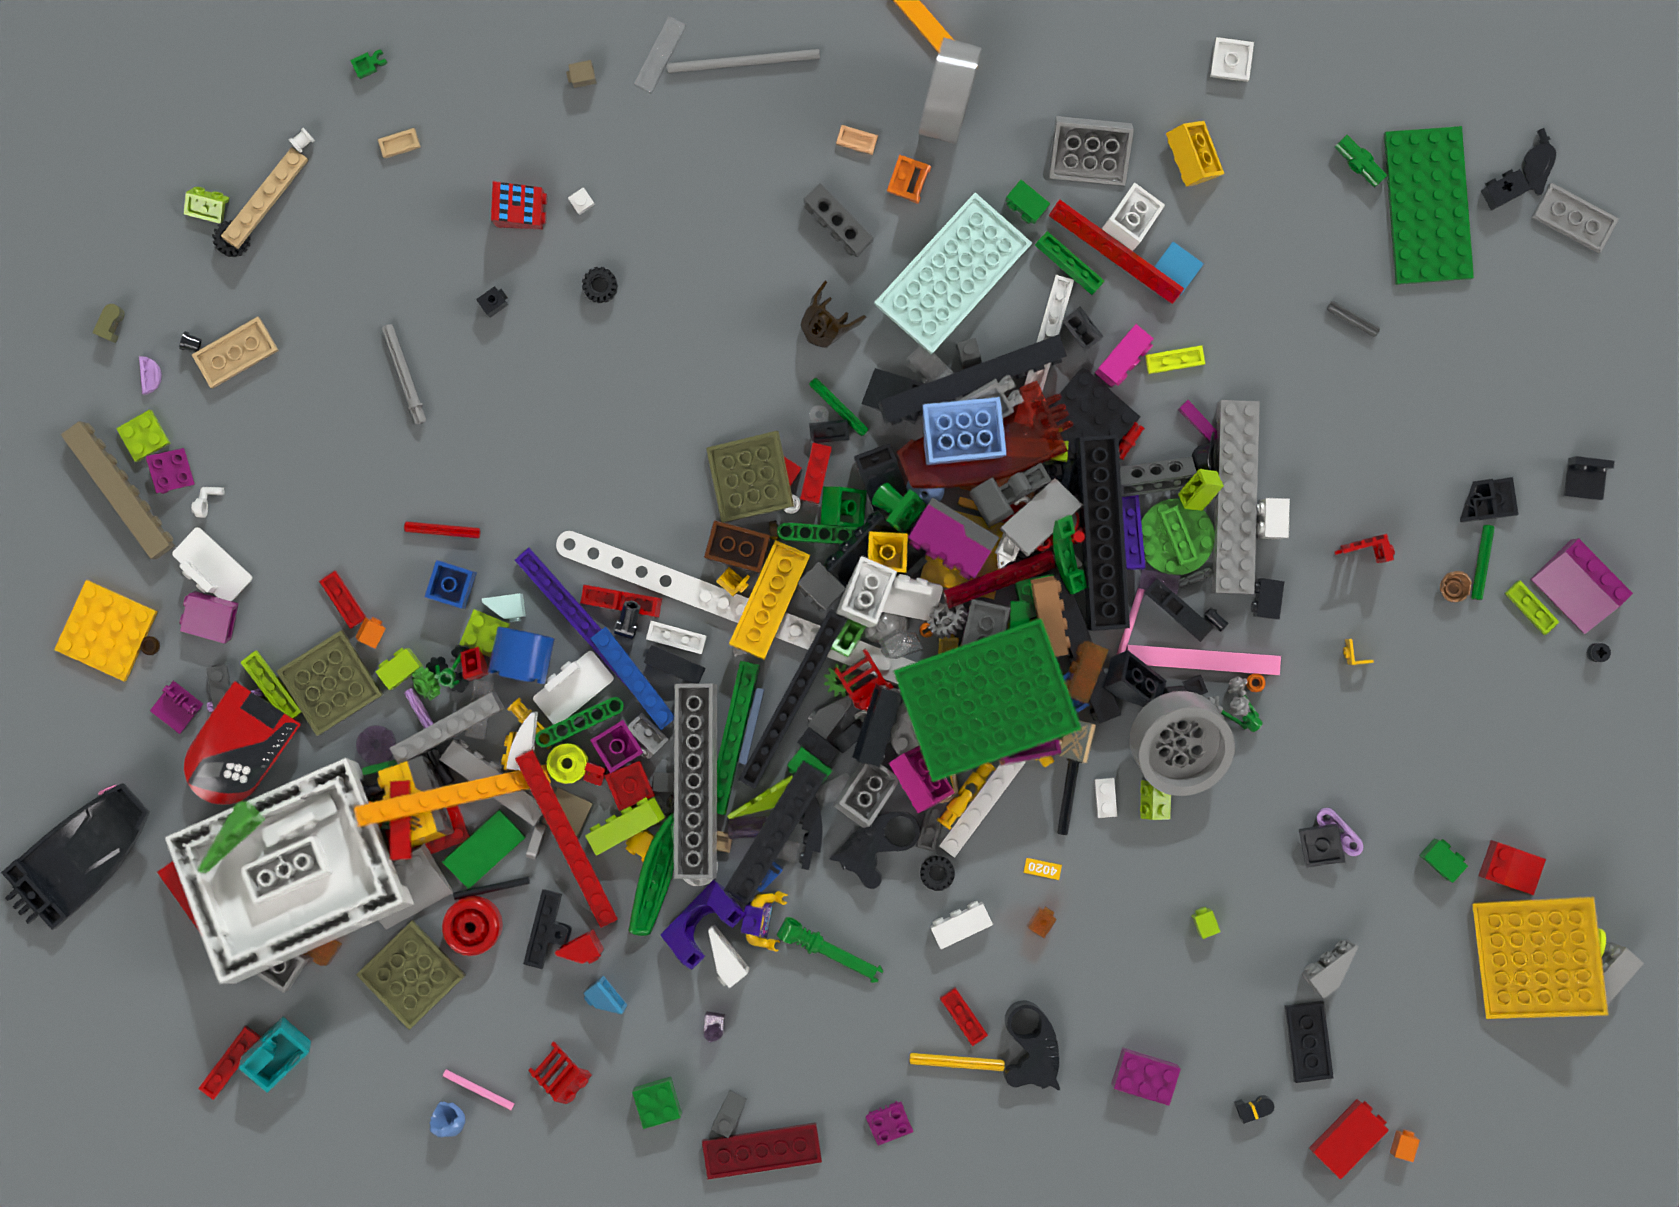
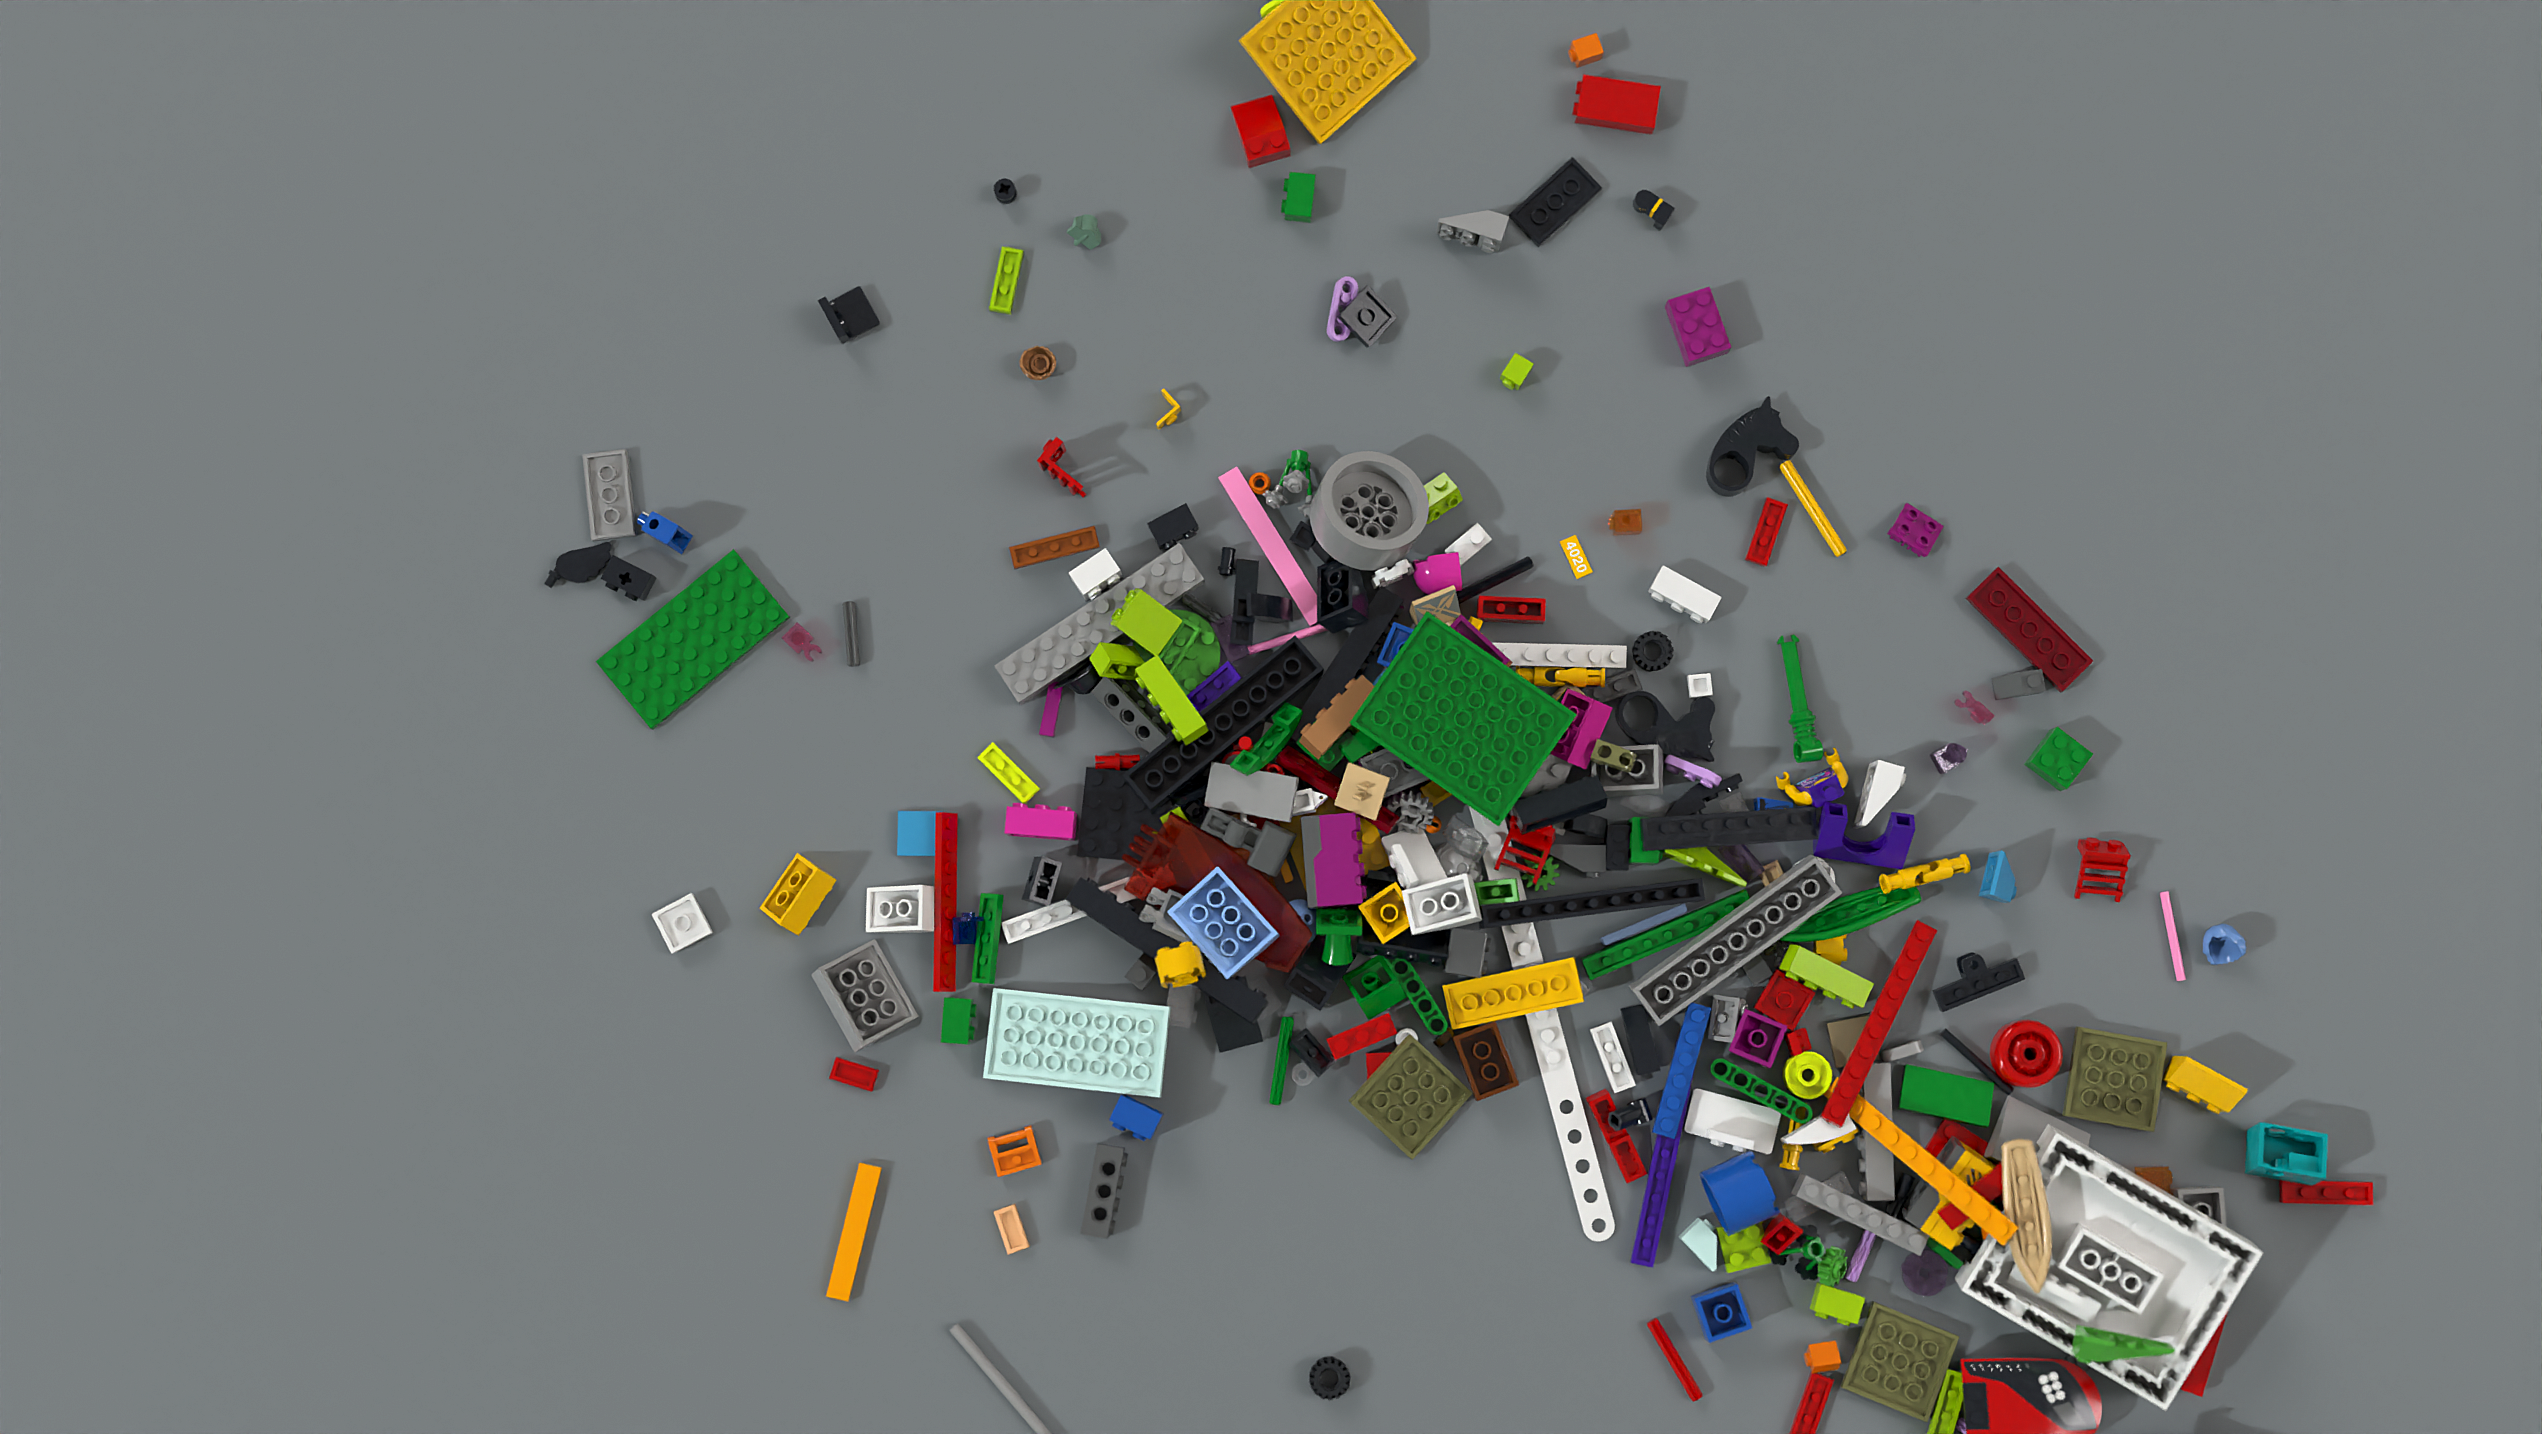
camera: 125 degrees left, 5 degrees down
(363, 1032) = (2202, 1084): none -> yellow slope
(366, 842) = (2027, 1208): none -> tan piece
(582, 949) = (1970, 933): red slope -> none
(644, 950) = (1927, 873): none -> yellow piece
(730, 1071) = (1978, 711): none -> clear pink plate
(732, 582) = (1521, 1041): yellow bracket -> none
(822, 327) = (1218, 1133): dark brown piece -> none
(833, 837) = (1692, 771): none -> lavender plate
(872, 277) = (1135, 1117): none -> blue brick
(884, 788) = (1613, 756): none -> olive leg
(889, 888) = (1699, 685): none -> white plate
(949, 90) = (906, 1170): light grey wheel -> none
(956, 378) = (1180, 965): none -> yellow brick
(986, 593) = (1362, 791): none -> tan piece
(1038, 794) = (1511, 609): none -> red brick
(1041, 106) = (854, 1074): none -> red tile
(1085, 671) = (1366, 647): clear orange brick -> none
(1087, 252) = (965, 928): none -> clear blue bracket
(1101, 761) = (1438, 573): none -> dark pink brick
(1123, 724) = (1386, 577): none -> white plate
(1146, 506) = (1171, 700): none -> lime brick
(1162, 623) = (1269, 607): none -> black slope
(1215, 529) = (1145, 621): none -> lime panel
(1313, 505) = (1054, 547): none -> dark orange tile
(1360, 161) = (695, 732): green piece -> none
(1374, 279) = (800, 640): none -> clear pink plate
(1482, 562) = (996, 354): green axle -> none
(1490, 500) = (933, 387): black slope -> none
(1521, 237) = (664, 531): none -> blue torso
(1528, 688) = (1085, 231): none -> sand green piece
(1581, 585) = (954, 250): magenta slope -> none

